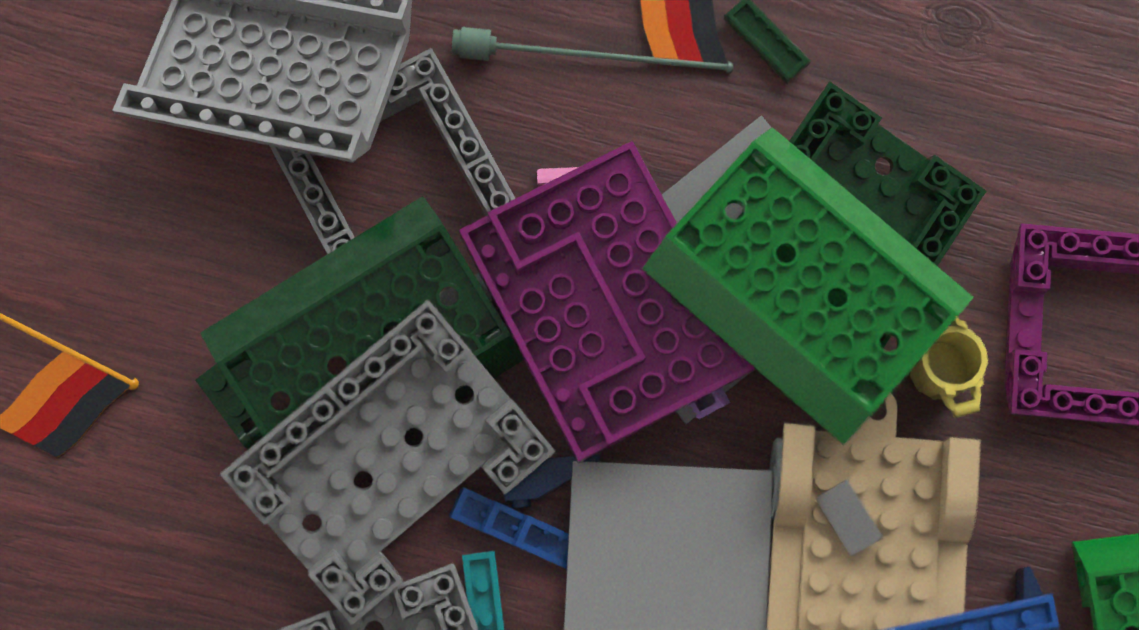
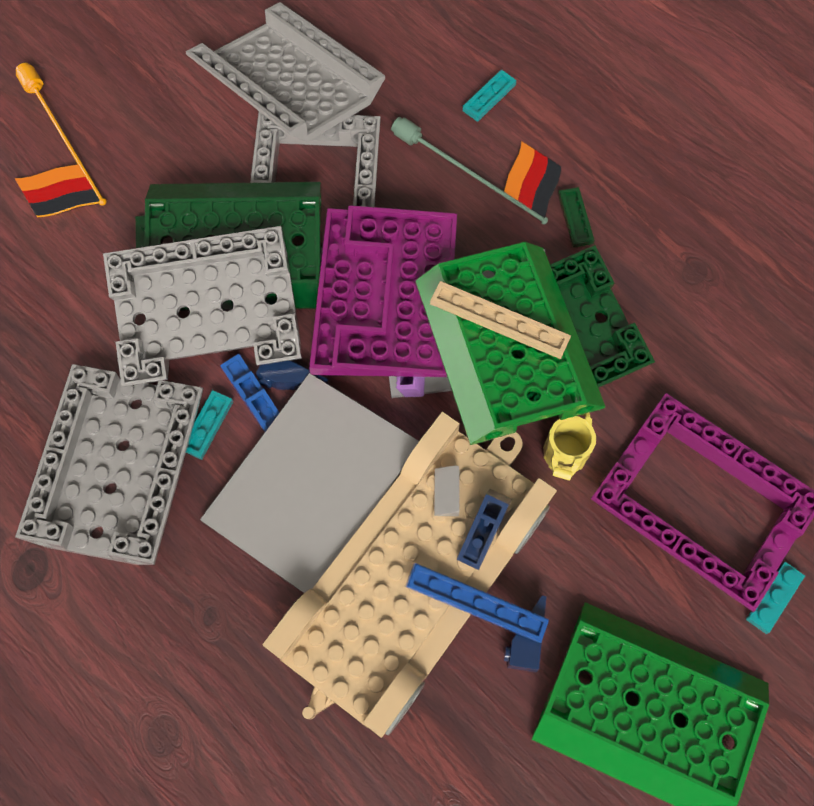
camera: 30 degrees right, 10 degrees down
(793, 270) = (500, 320): none -> tan plate
(922, 536) = (484, 529): none -> dark blue slope

